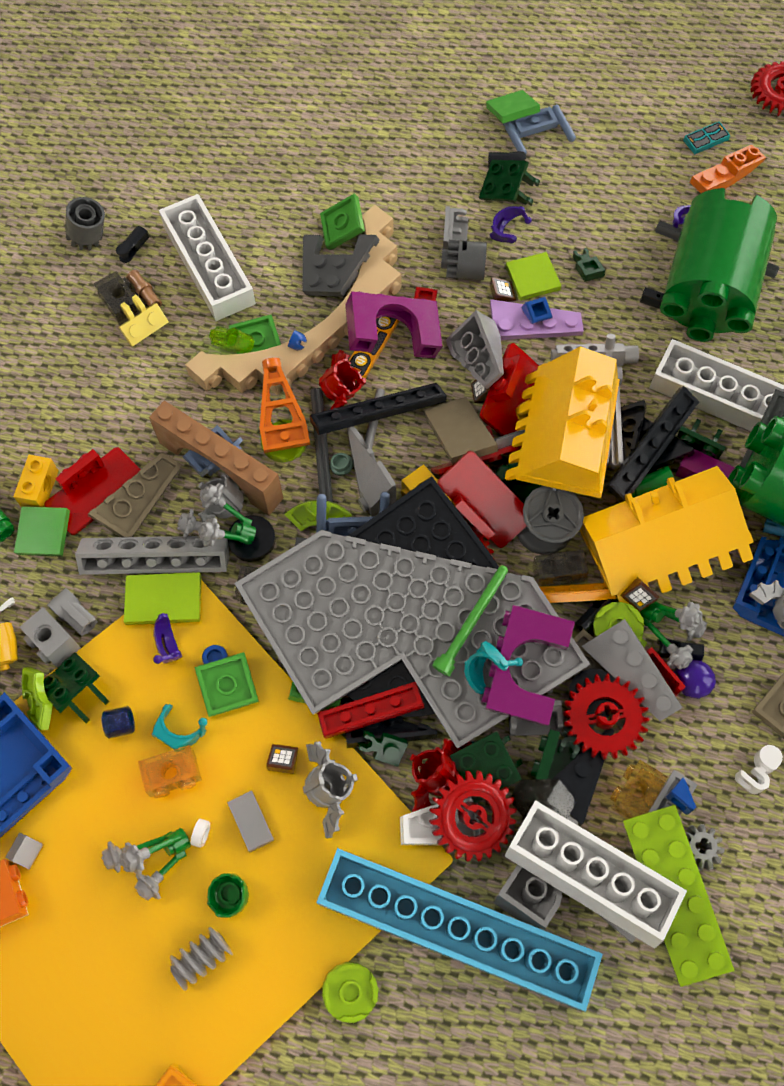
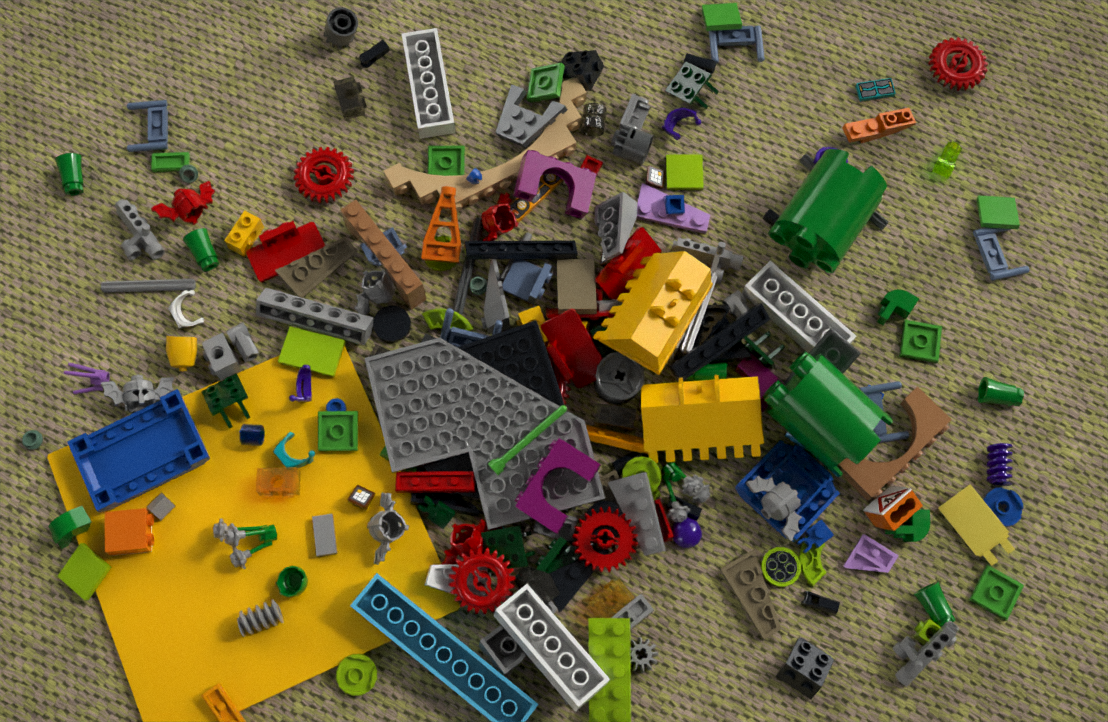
camera: 15 degrees right, 5 degrees up
(33, 690) = (199, 402): lime tile -> none
(42, 531) = (238, 272): bright green tile -> none
(121, 397) = (326, 187): none -> red gear
(142, 324) = (362, 125): light yellow hinge -> none
(143, 288) = (371, 96): medium nougat pin -> none
(200, 833) = (286, 532): white tile -> none
(209, 530) = (358, 312): light grey plant -> none
(231, 339) = (426, 159): clear neon green piece -> none
(380, 191) = (583, 65): none -> black bracket
(398, 441) = (527, 280): none -> sand blue bracket
(411, 246) = (593, 119): none -> clear smoke wheel
(475, 665) = (519, 472): teal helmet -> none
(588, 267) = (730, 177): dark green plate -> none
(639, 595) = (664, 457): slope -> none
(652, 398) = (736, 303): none -> light grey piece
(681, 797) = (635, 614): blue slope -> none
(766, 762) = (715, 609): white leg -> none

